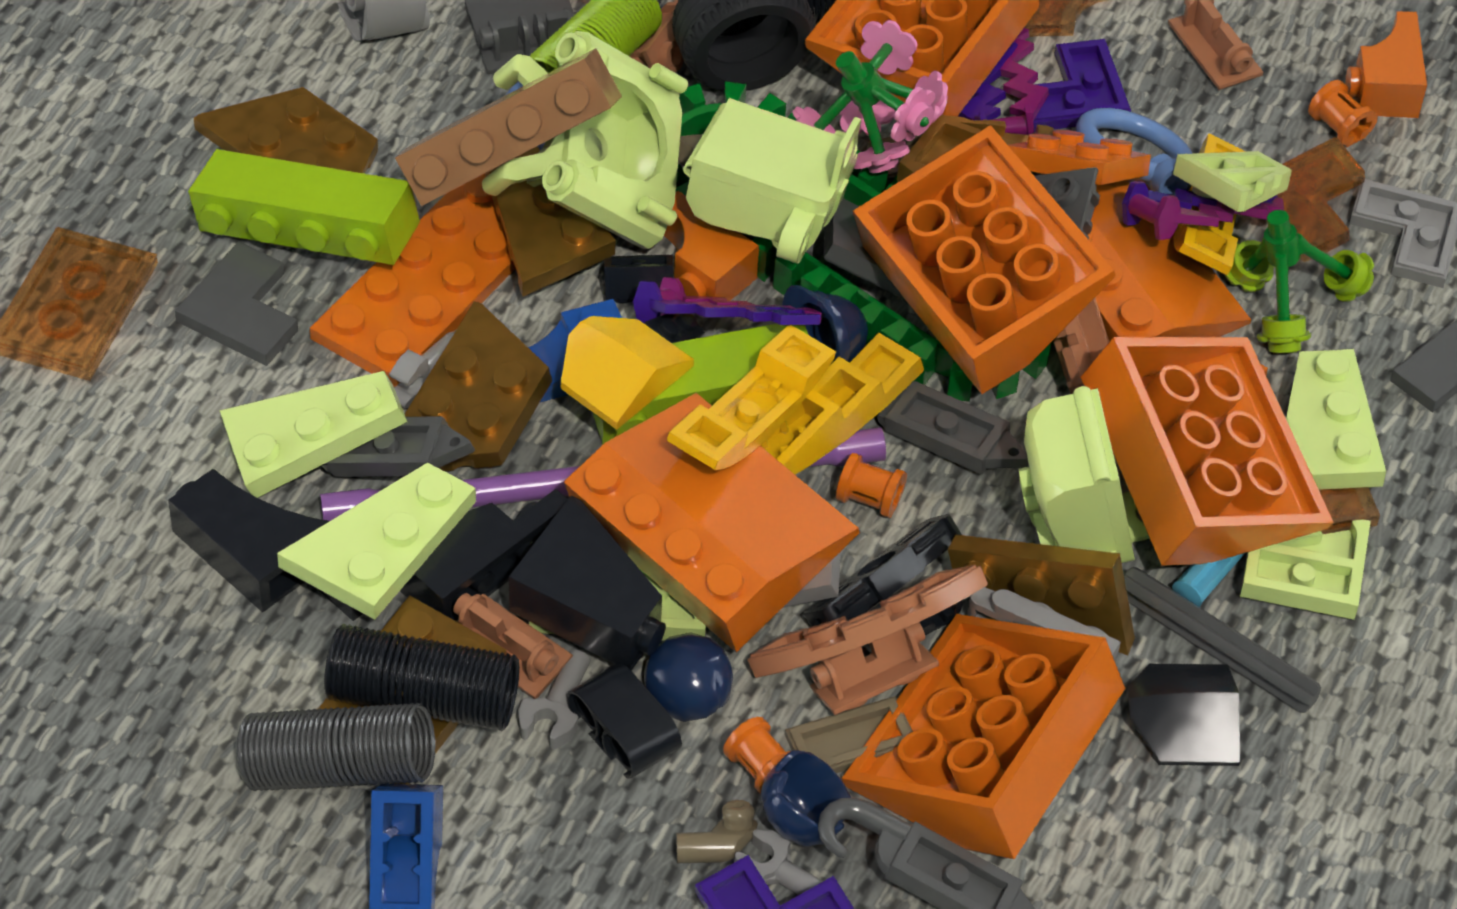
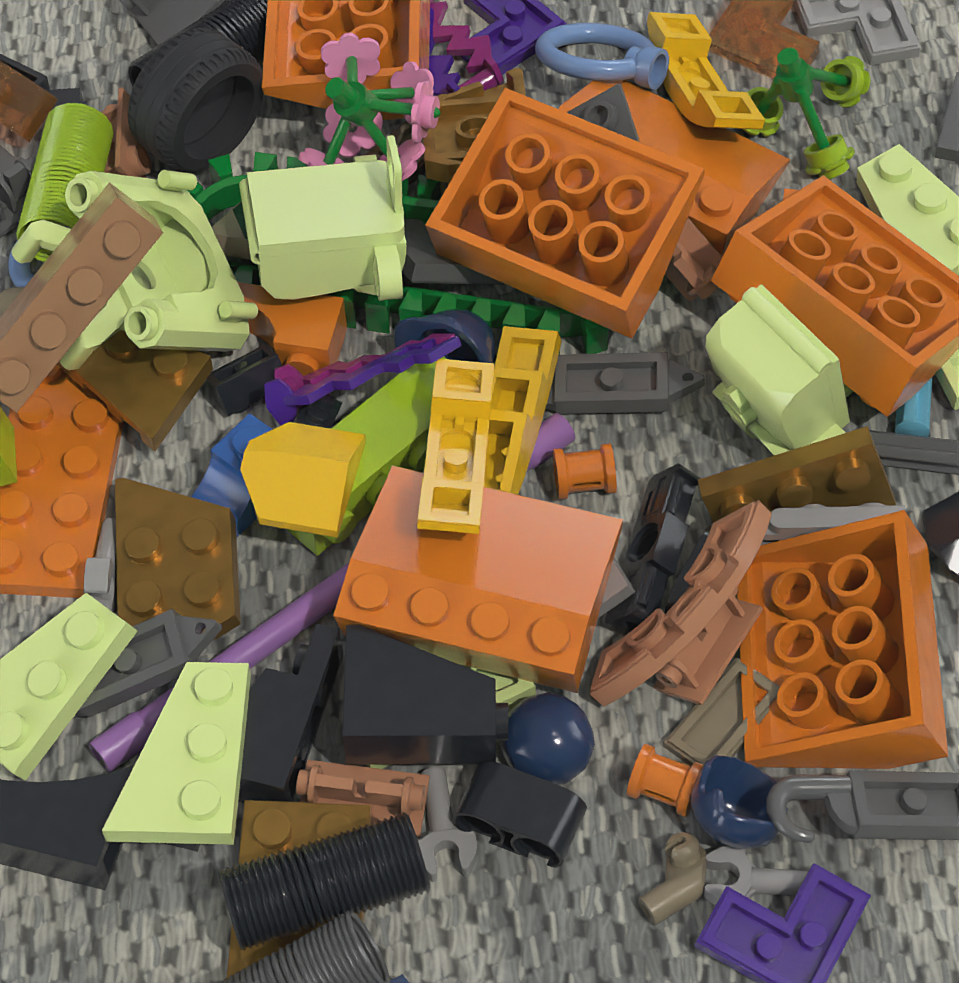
camera: 25 degrees left, 5 degrees up
(1068, 152) = (572, 85): orange plate -> none
(1169, 210) = (716, 76): magenta piece -> none
(1233, 177) = (708, 38): yellowish green wing -> none

